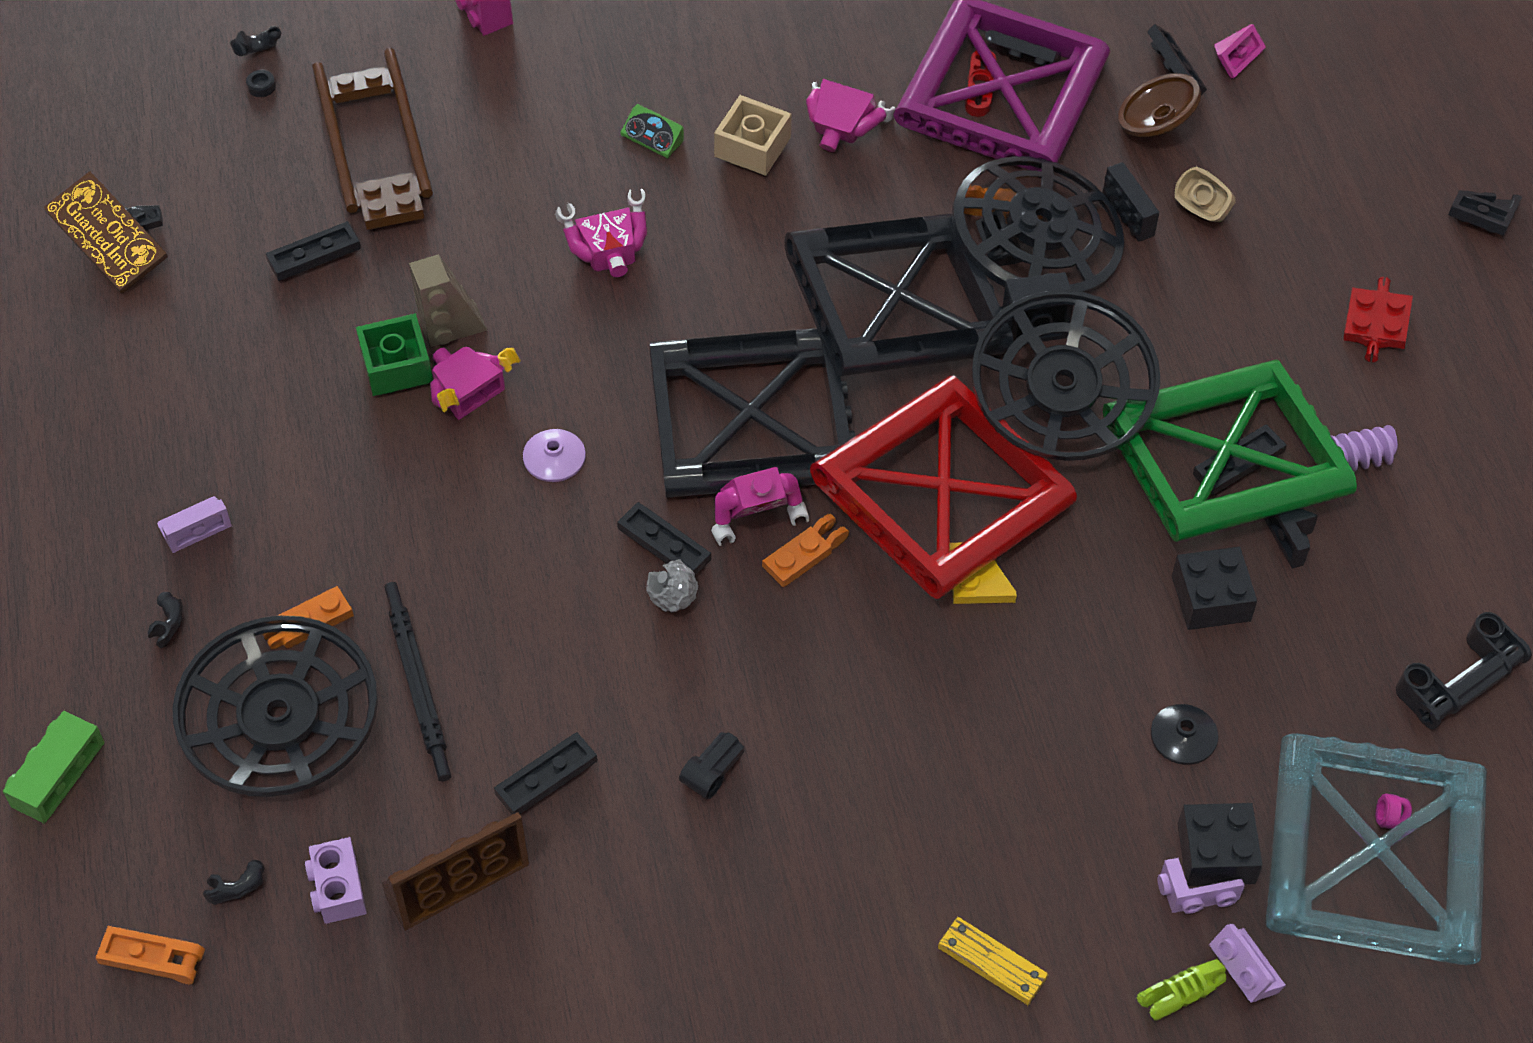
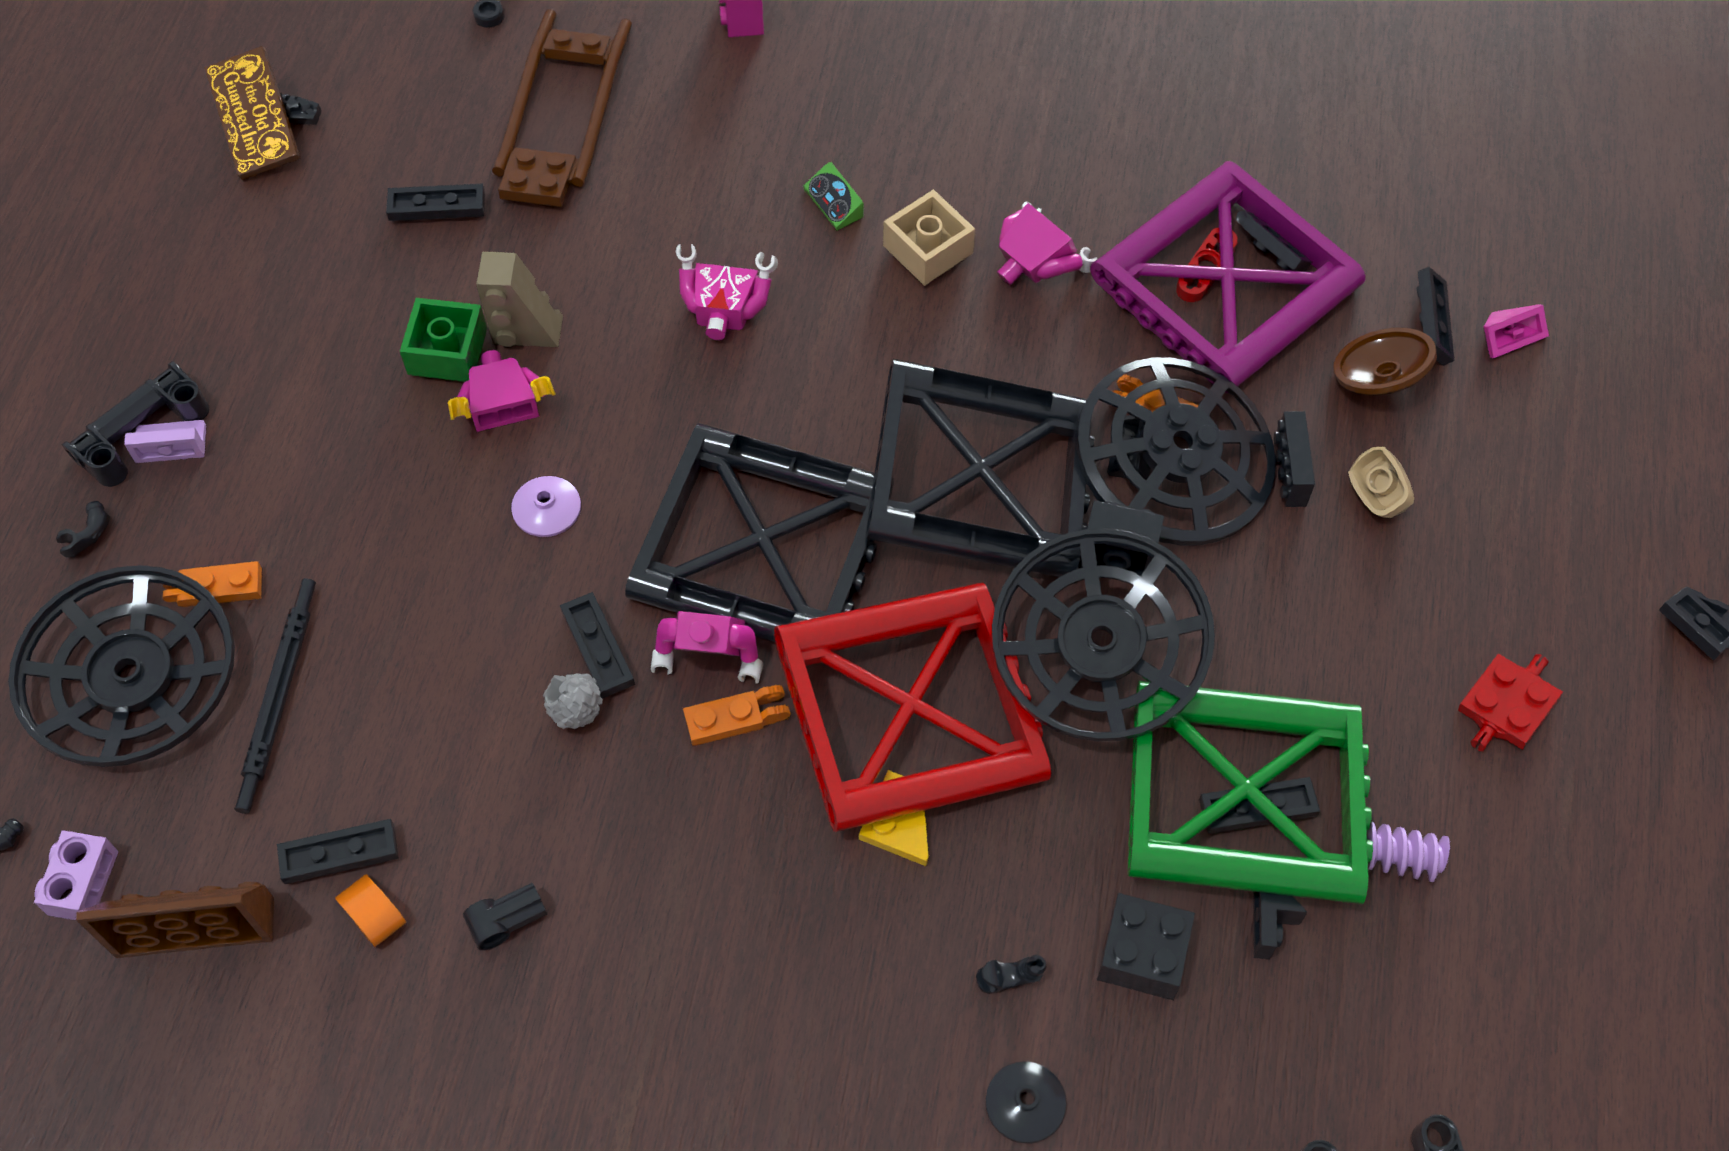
camera: 25 degrees right, 5 degrees up
(134, 551) = (94, 446): none -> black piece
(605, 804) = (370, 910): none -> orange panel
(1119, 653) = (1002, 976): none -> black piece

